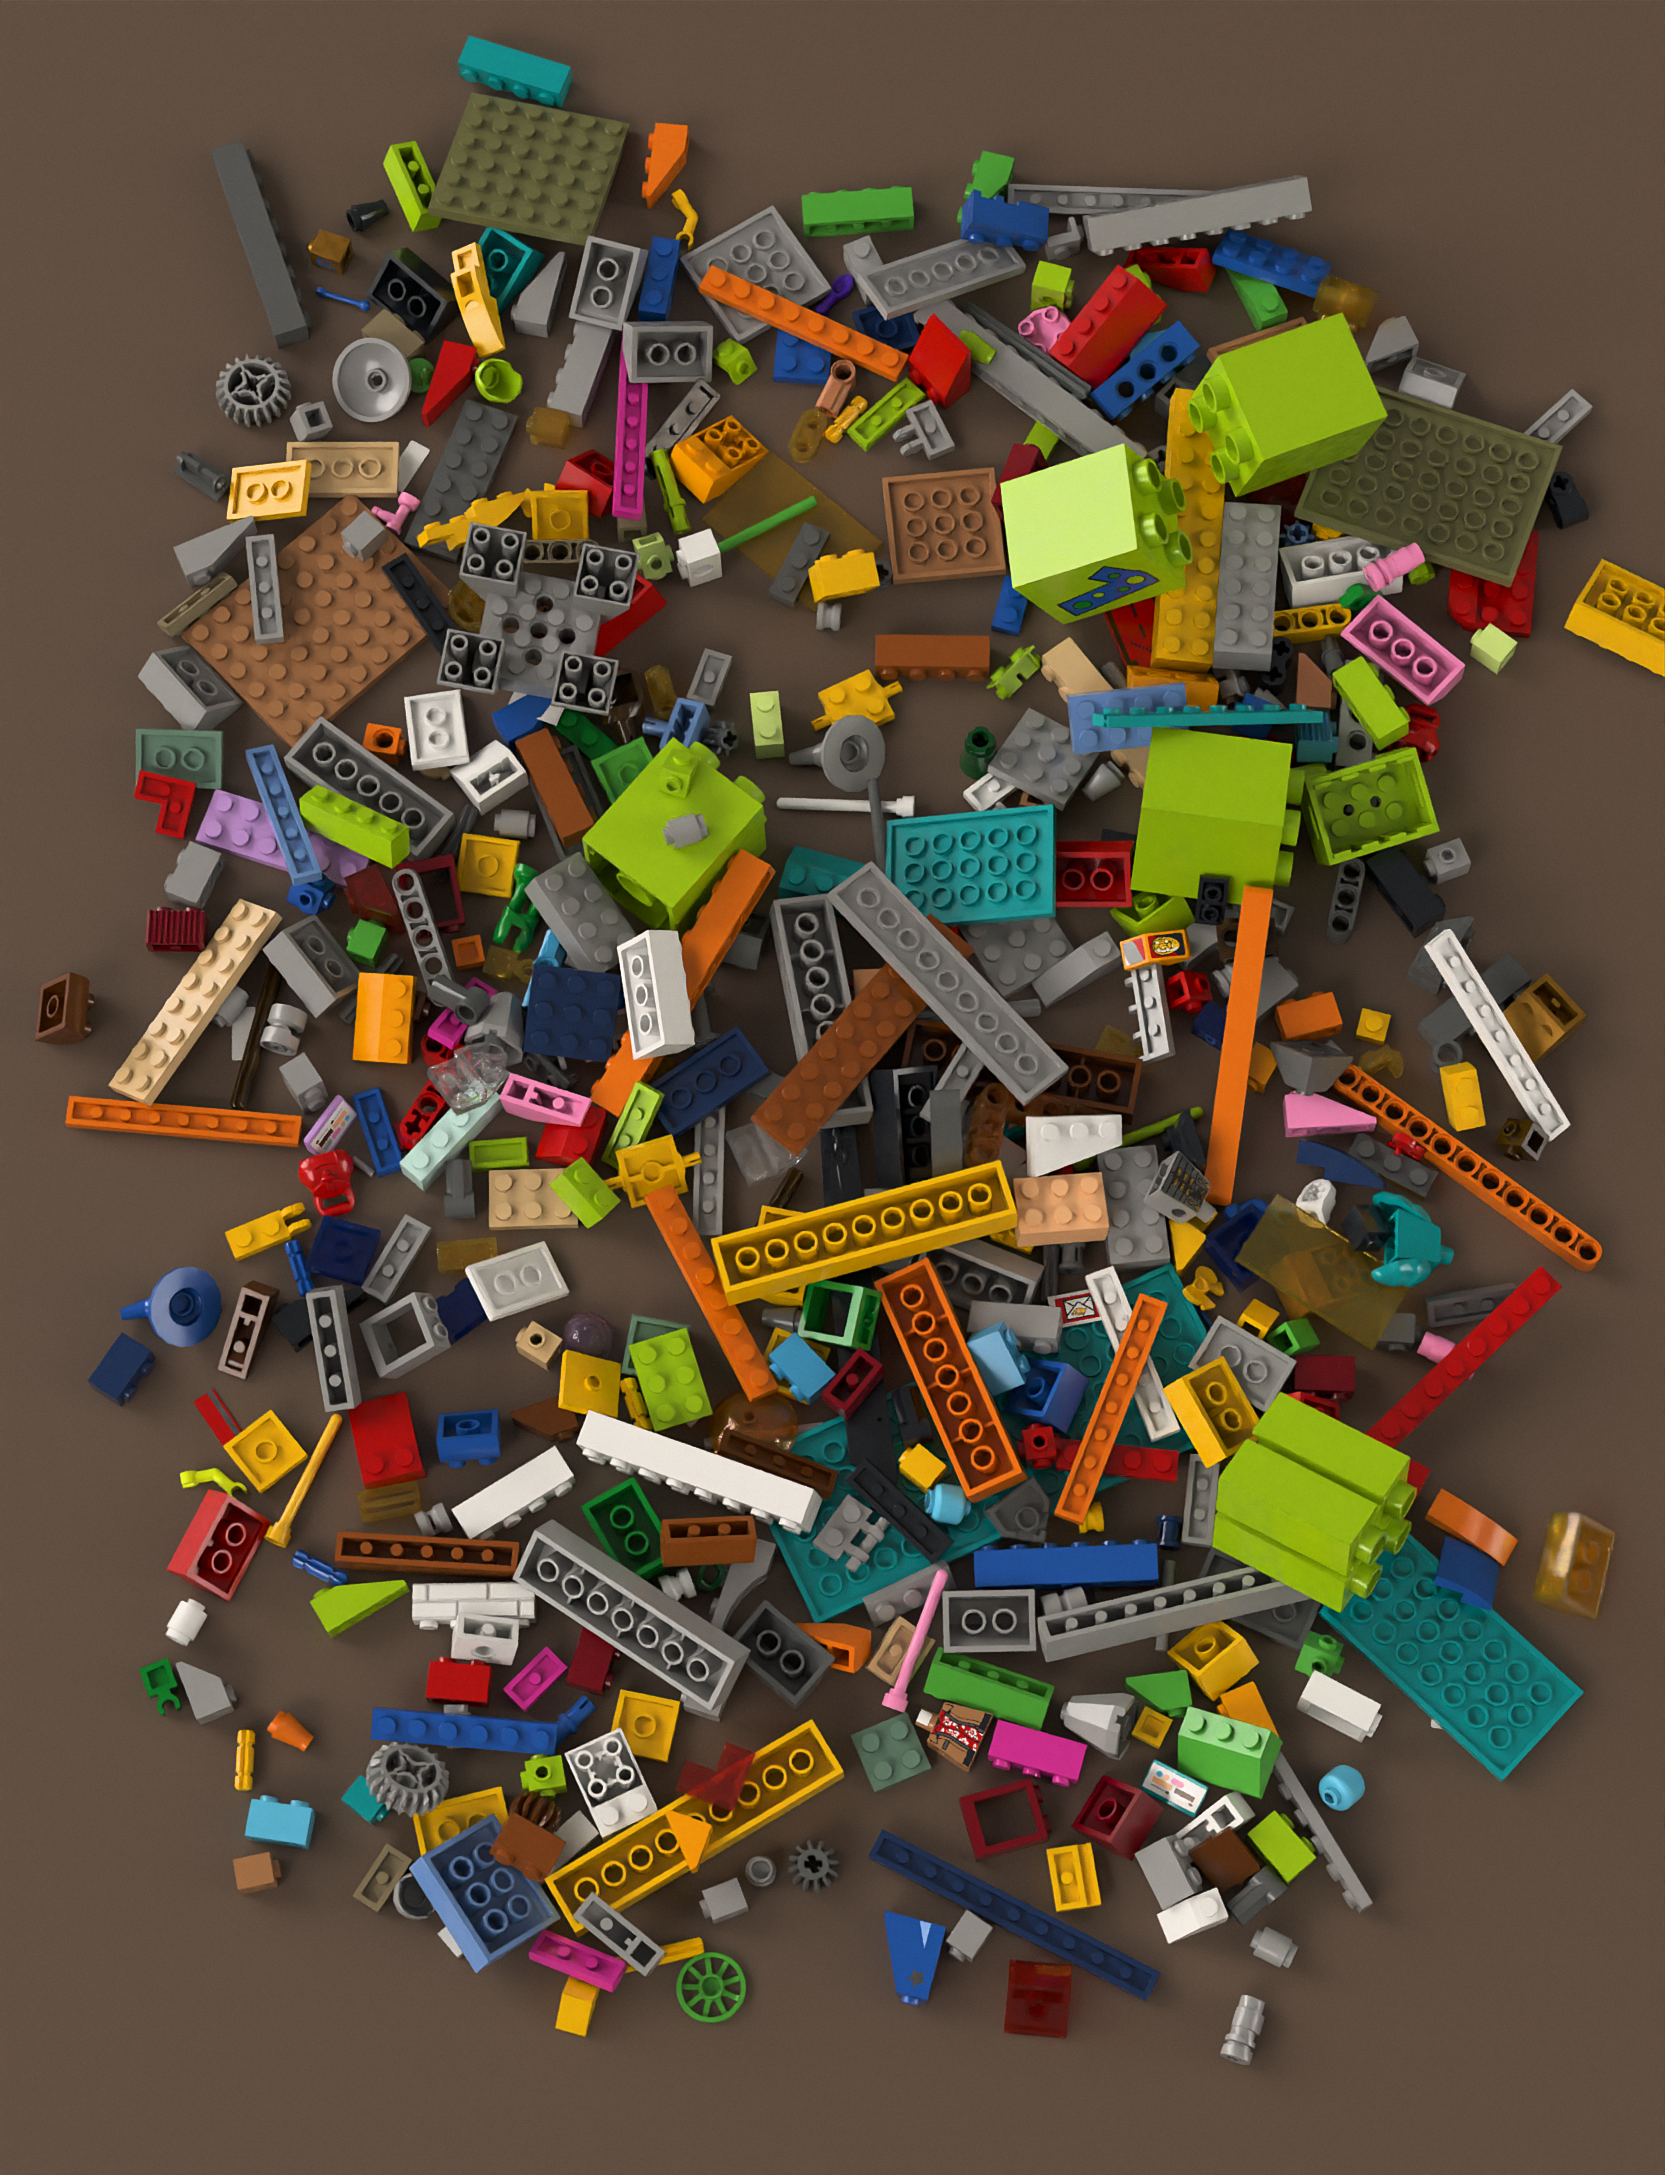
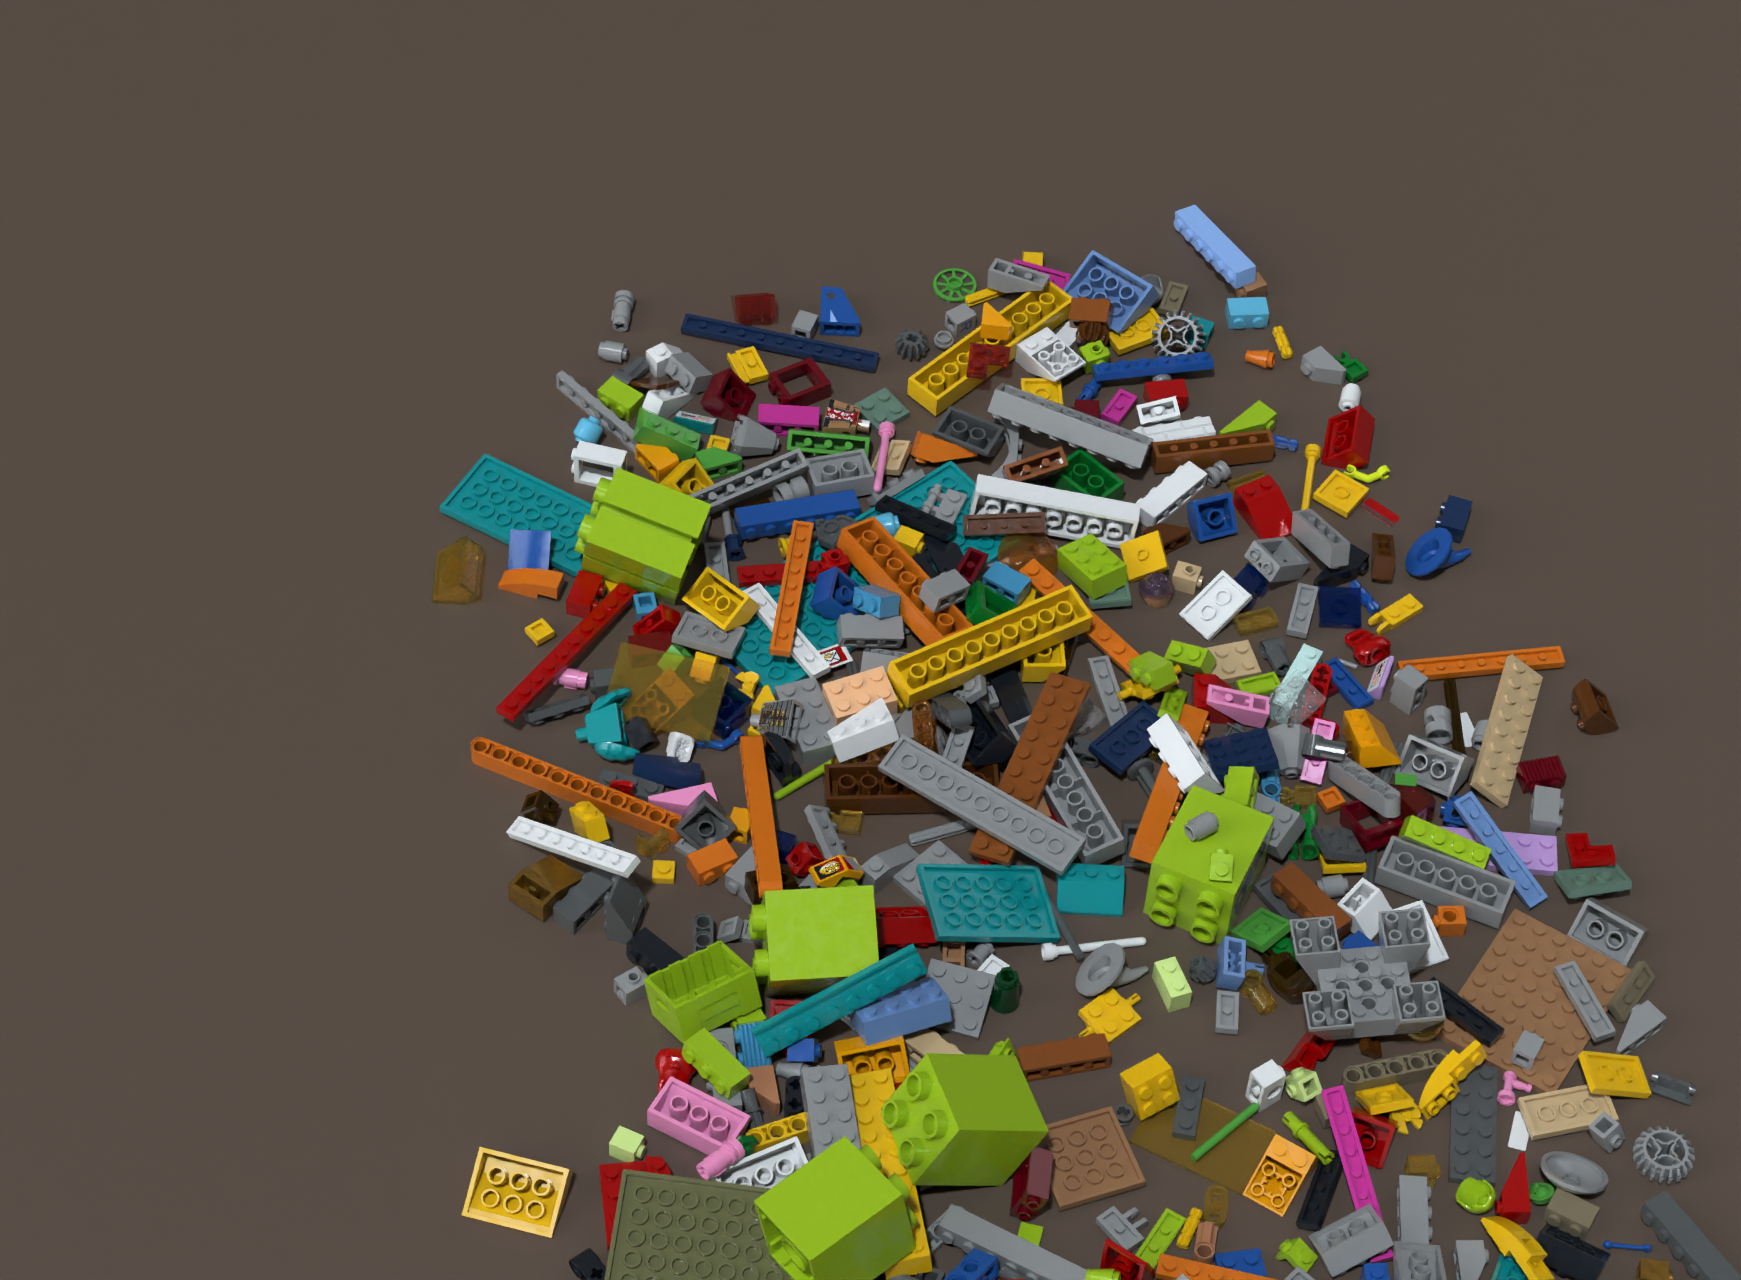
camera: 160 degrees right, 20 degrees down
(287, 1958) = (1215, 246): none -> light blue brick
(489, 864) = (1338, 844): none -> dark grey plate
(600, 931) = (1241, 785): none -> lime brick
(649, 1164) = (1152, 670): none -> lime brick
(901, 1175) = (973, 690): none -> light grey plate
(904, 1334) = (944, 590): none -> light grey brick
(1305, 916) = (730, 929): none -> light grey plate
(1472, 1441) = (539, 631): none -> yellow plate

